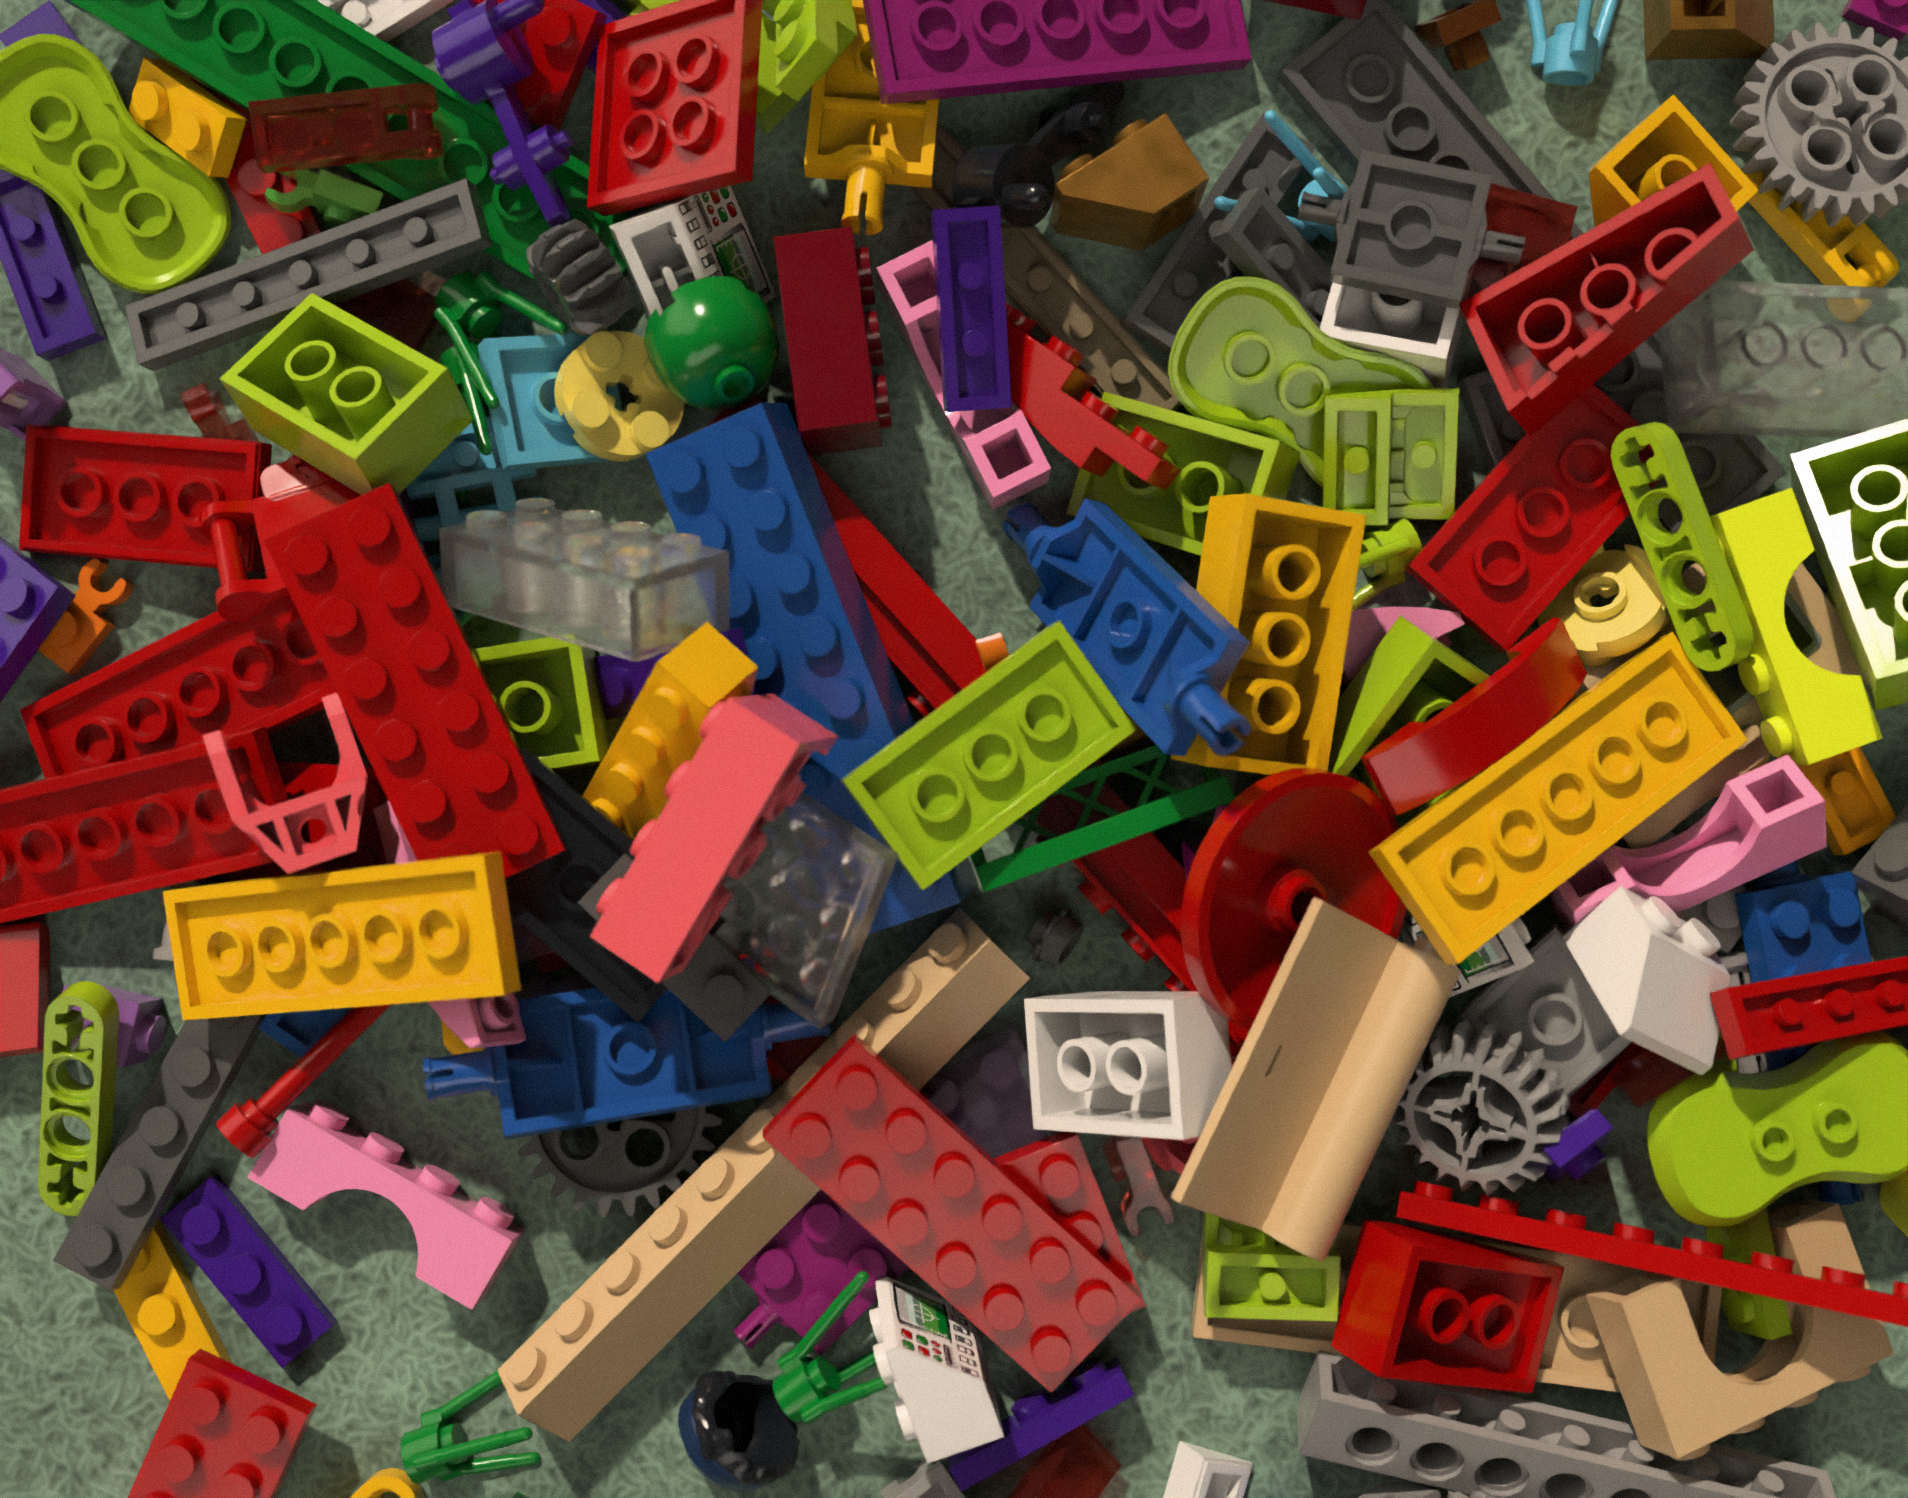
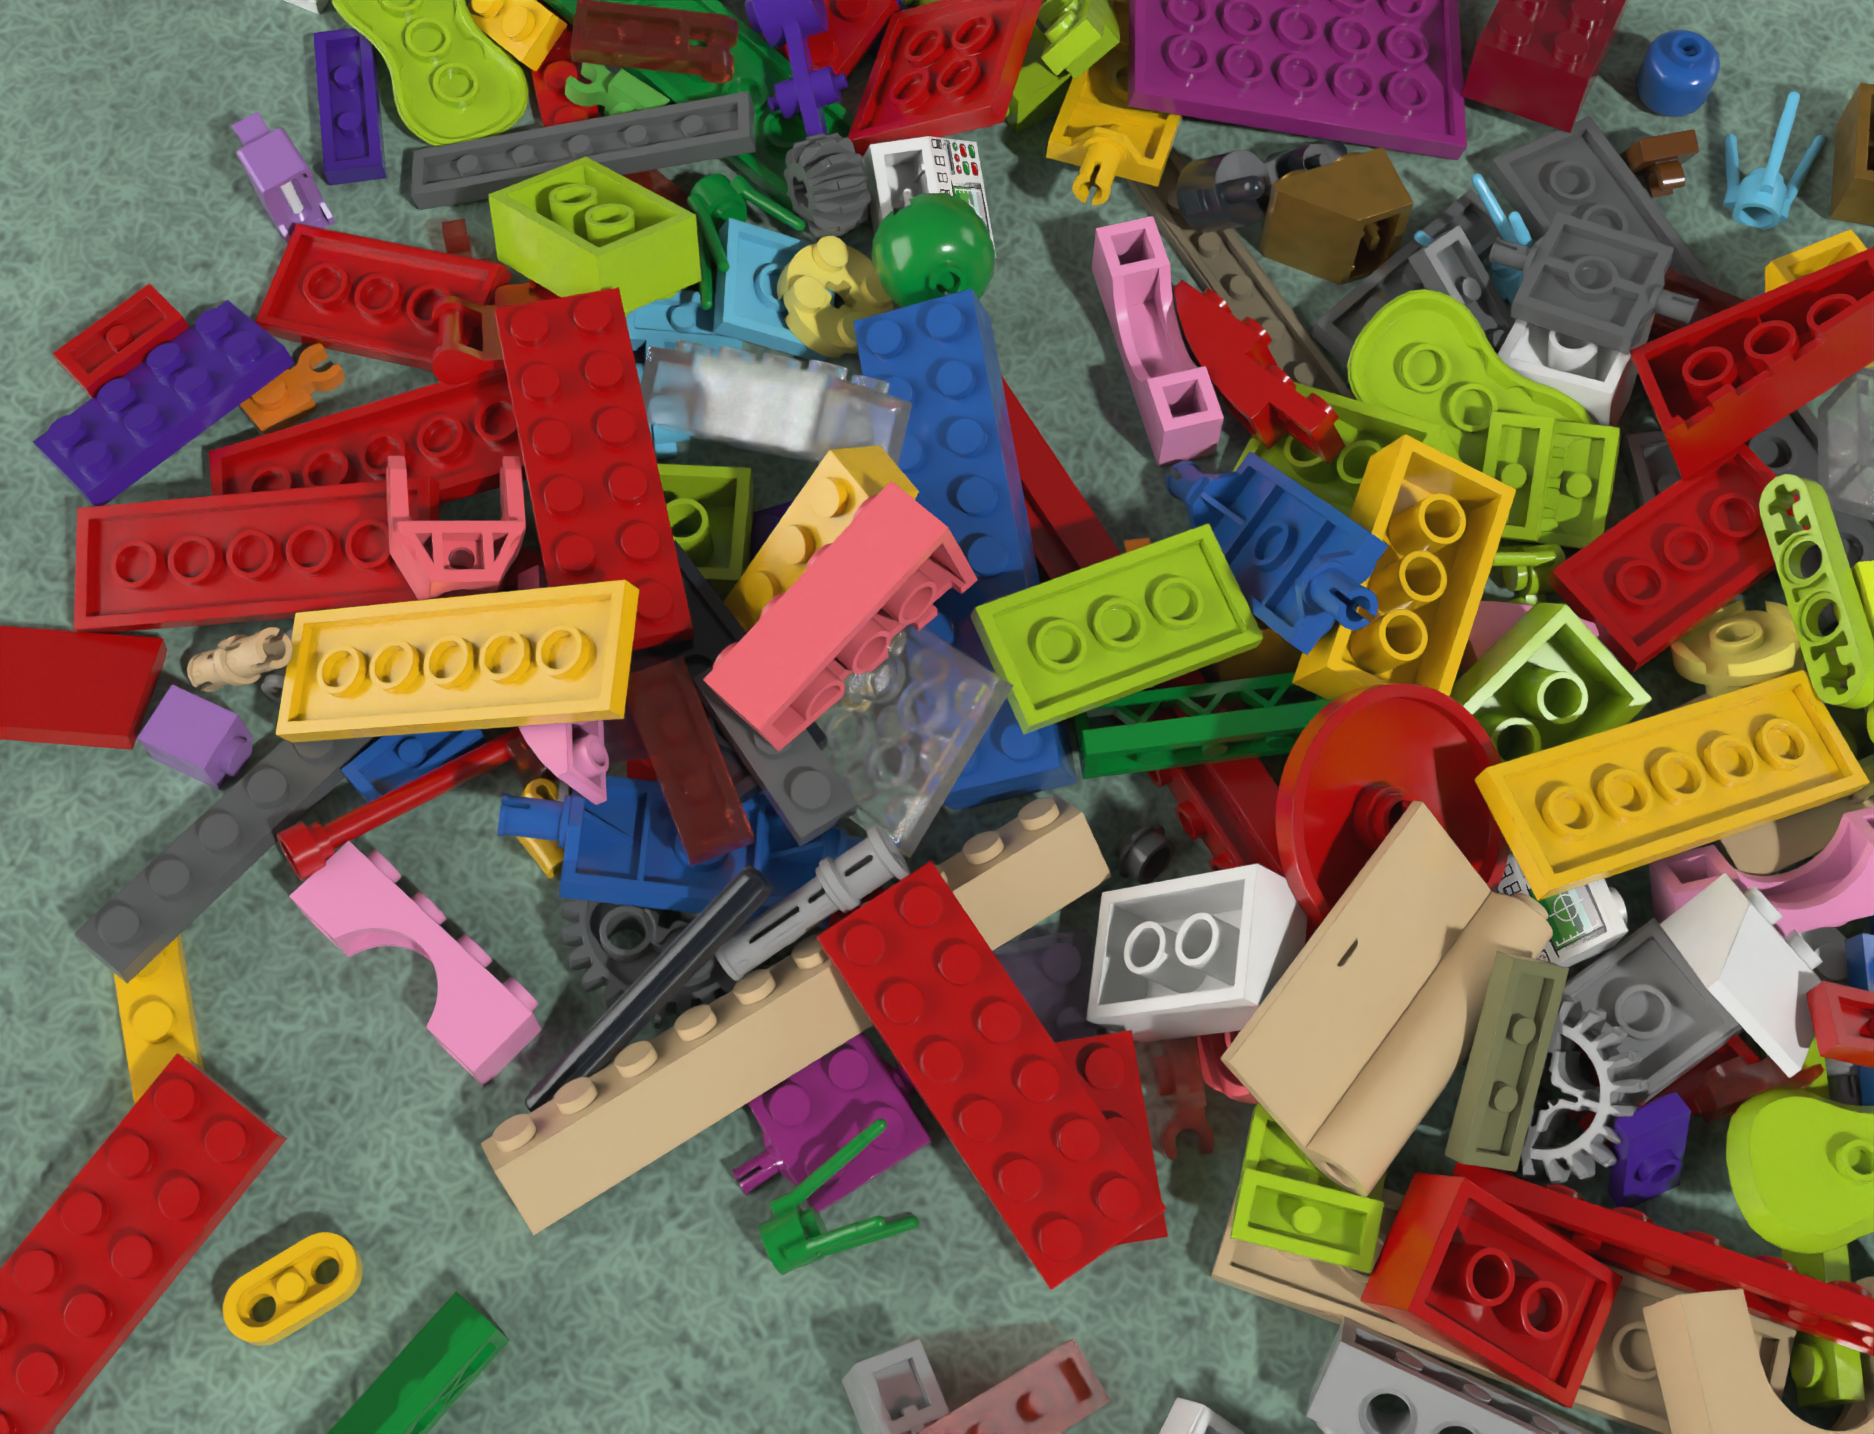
camera: 10 degrees right, 20 degrees down
(67, 1097) = (139, 784): lime beam -> none
(123, 943) = (240, 660): none -> tan pin
(249, 1270) = (256, 1007): dark purple plate -> none
(444, 1449) = (398, 1218): green plant -> none
(593, 990) = (687, 761): none -> clear red plate
(620, 1201) = (657, 984): none -> black axle
(737, 1431) = (710, 1264): black hair -> none
(767, 1083) = (837, 886): none -> light grey pin
(832, 340) = (1043, 285): dark red brick -> none
(936, 1371) = (942, 1232): white slope -> none
(971, 308) = (1176, 270): dark purple plate -> none
(1045, 1417) = (1031, 1327): dark purple plate -> none
(1436, 1111) = (1506, 1062): none -> olive plate
(1480, 725) = (1596, 697): red slope -> none

